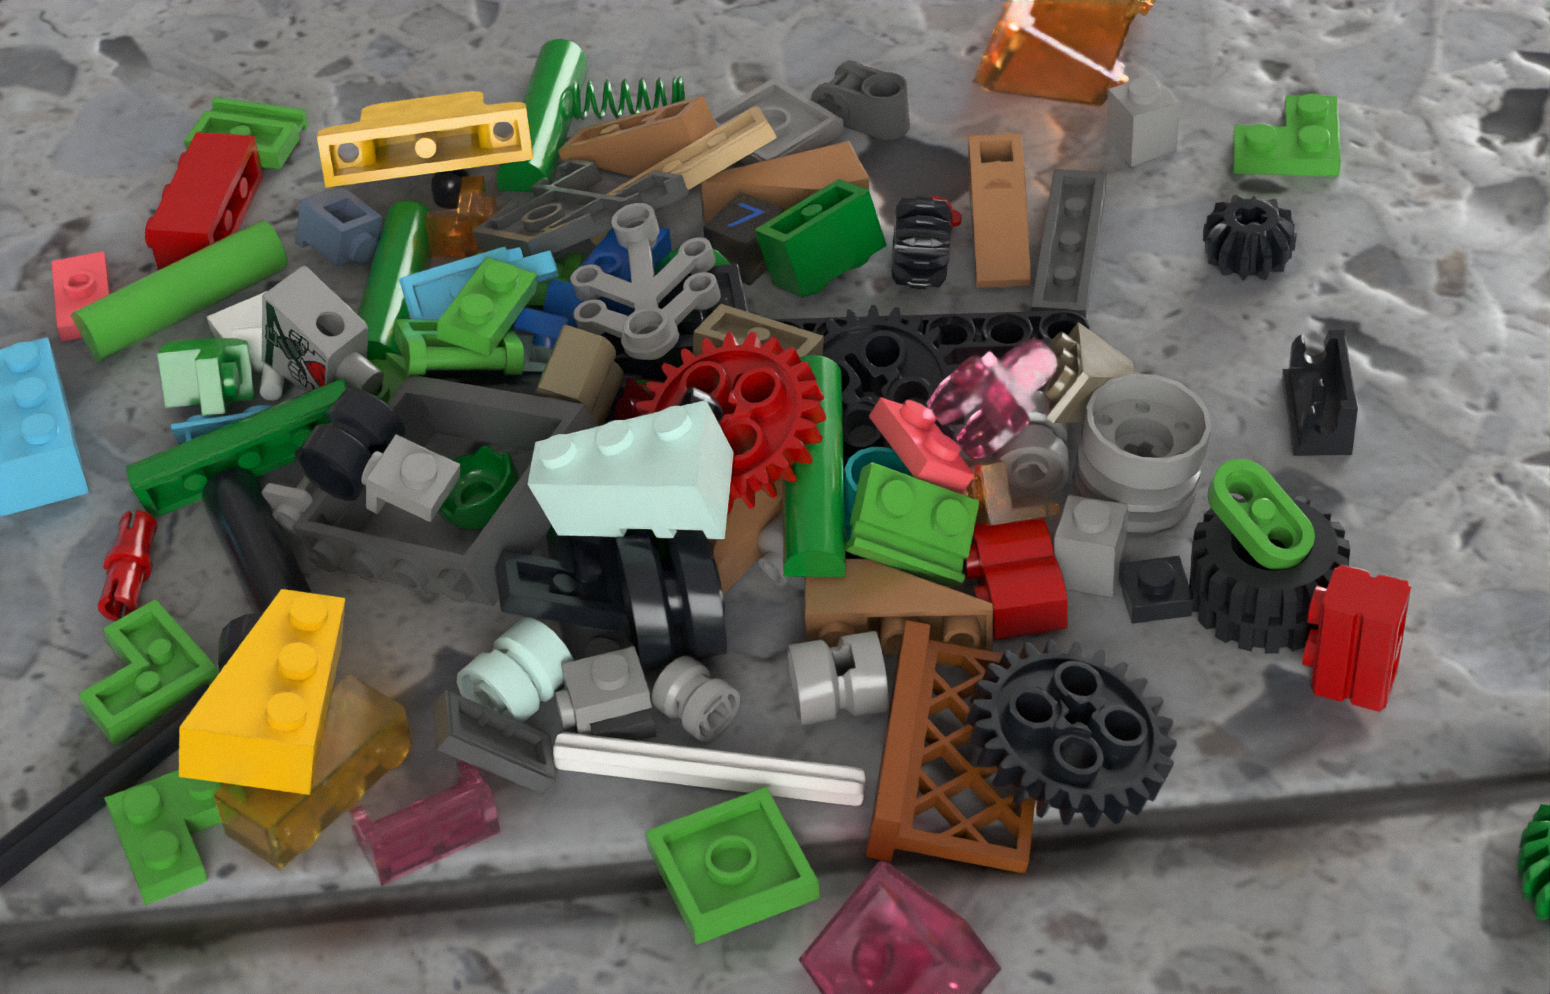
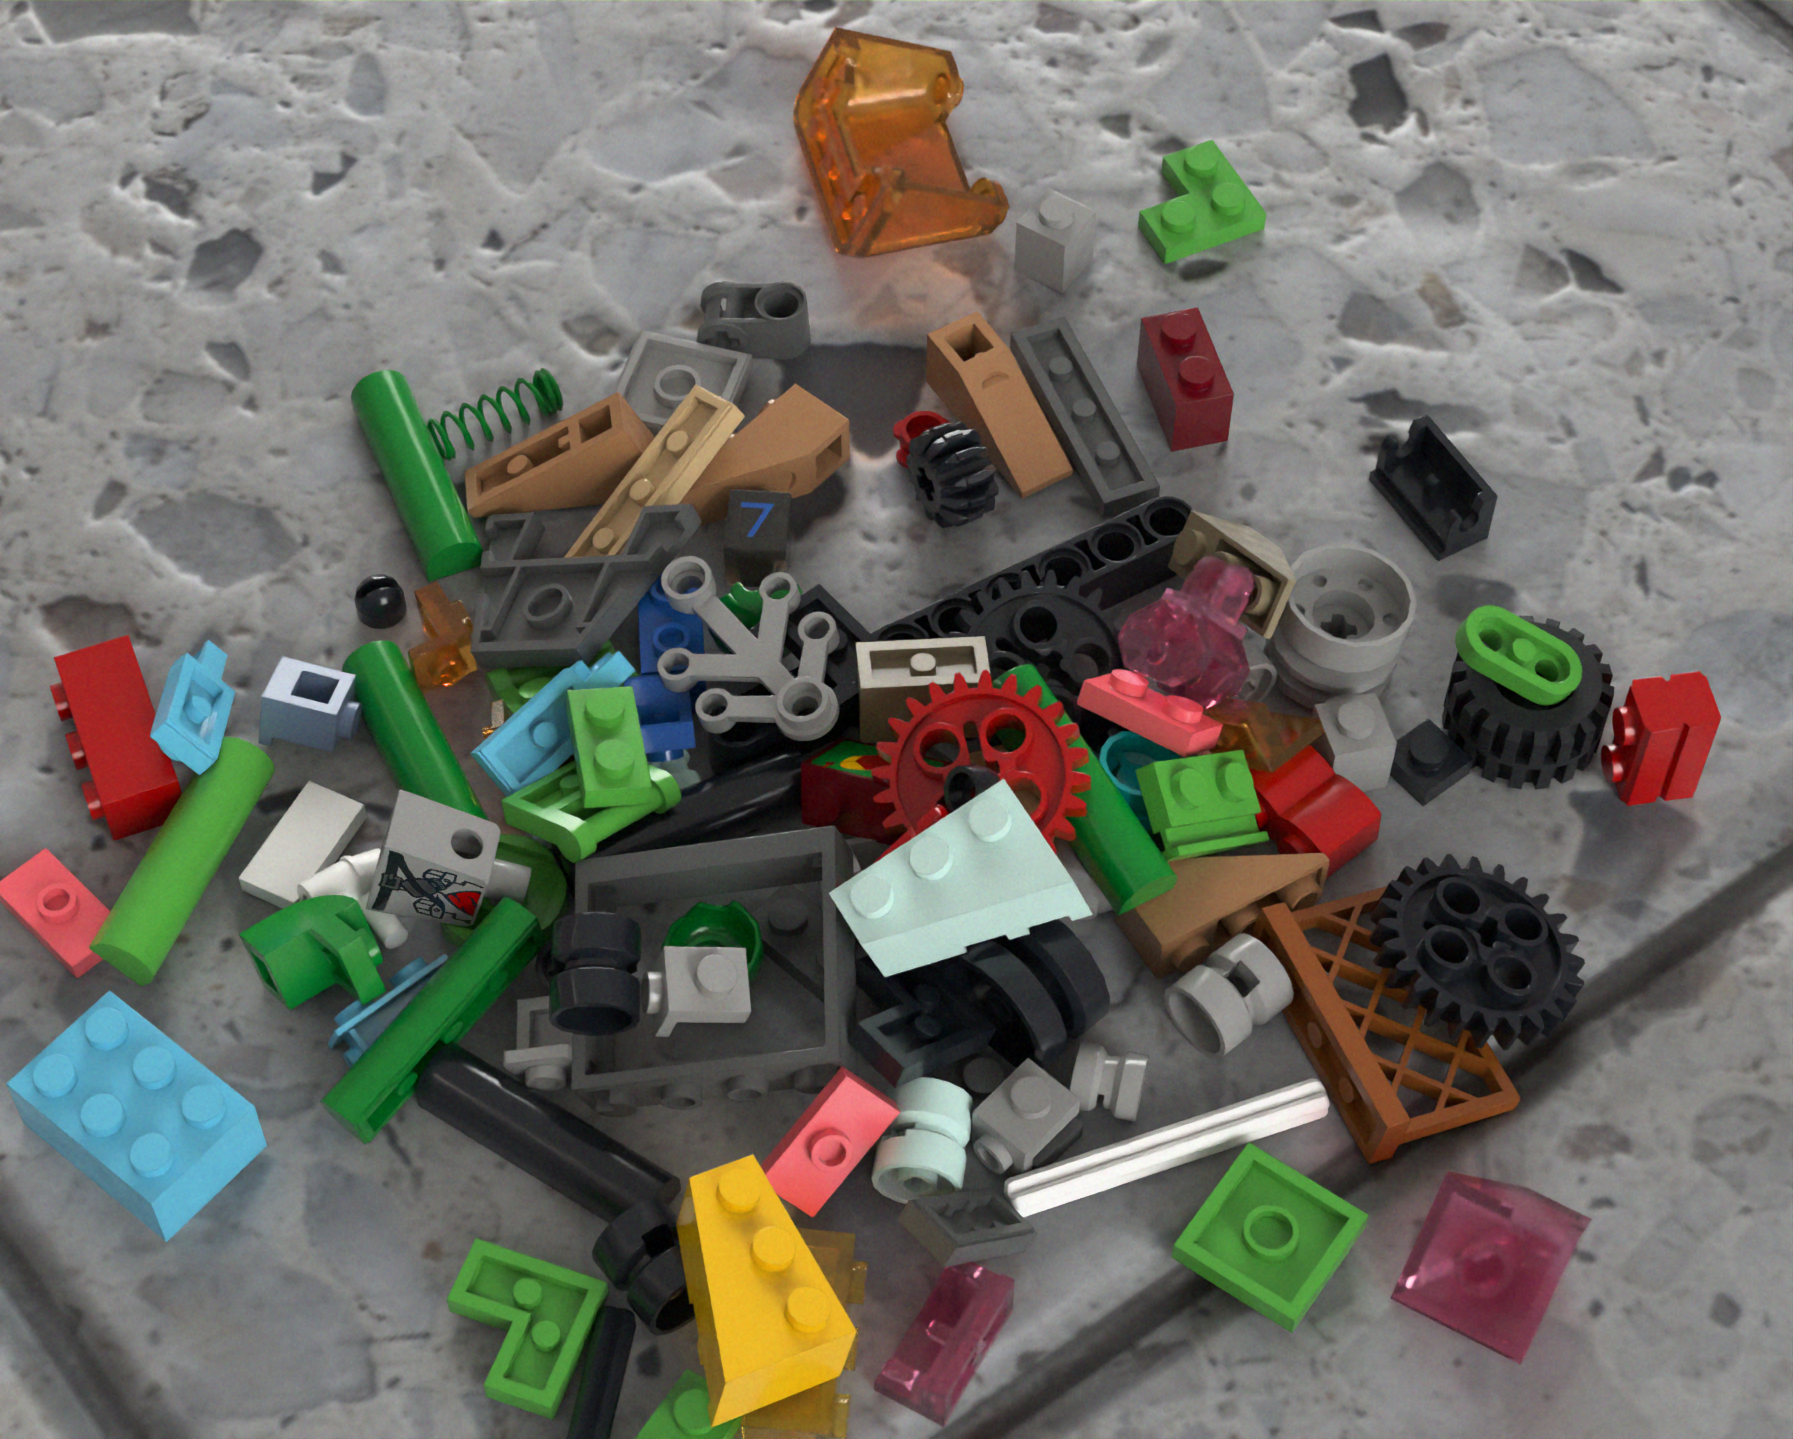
camera: 35 degrees left, 10 degrees up
(127, 565) = (398, 1212): red pin -> none
(257, 194) = (194, 709): none -> medium azure hinge
(273, 126) = (85, 617): bright green plate -> none
(424, 138) = (338, 555): yellow brick -> none
(439, 638) = (828, 1141): none -> coral plate
(582, 372) = (774, 789): dark tan brick -> none
(821, 238) = (847, 510): green brick -> none
(1168, 246) = (1184, 379): none -> dark red brick
(1249, 237) = (1252, 336): black gear -> none

